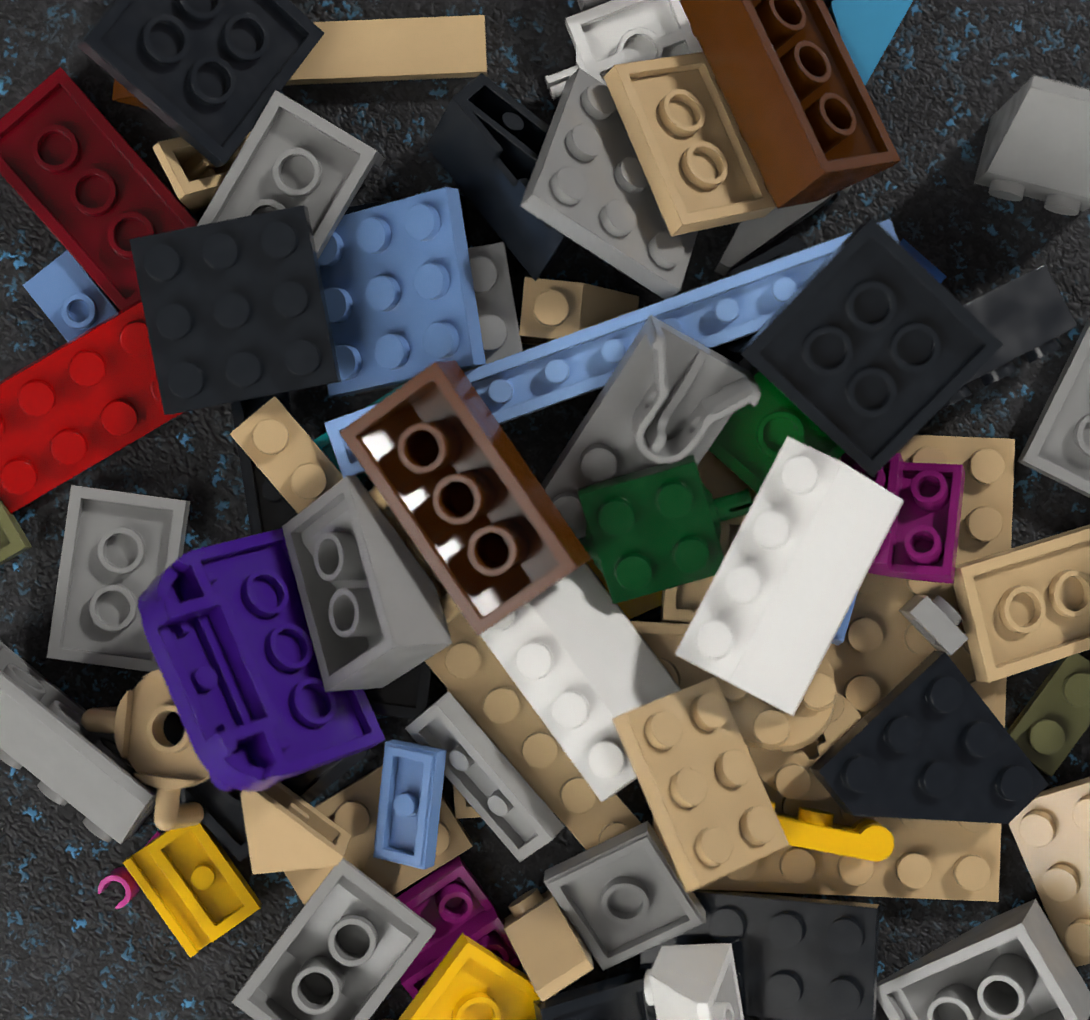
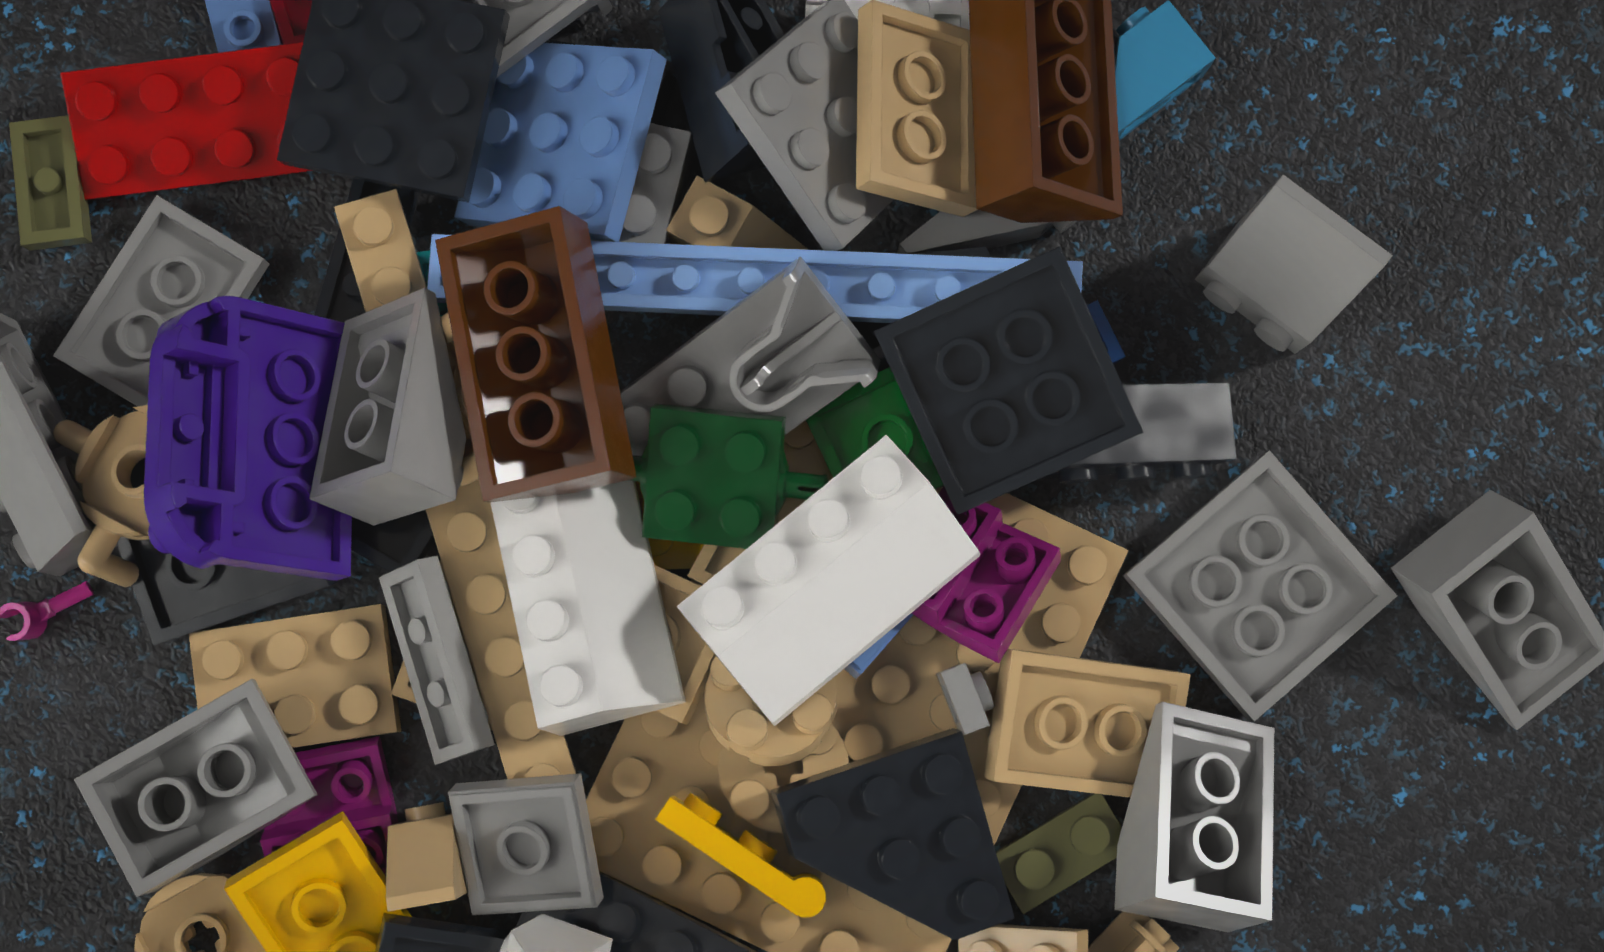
camera: 20 degrees right, 5 degrees down
(193, 885) = (95, 648): yellow plate -> none
(289, 832) = (210, 627): tan slope -> none
(409, 803) = (348, 655): medium blue plate -> none
(700, 783) = (647, 752): tan plate -> none

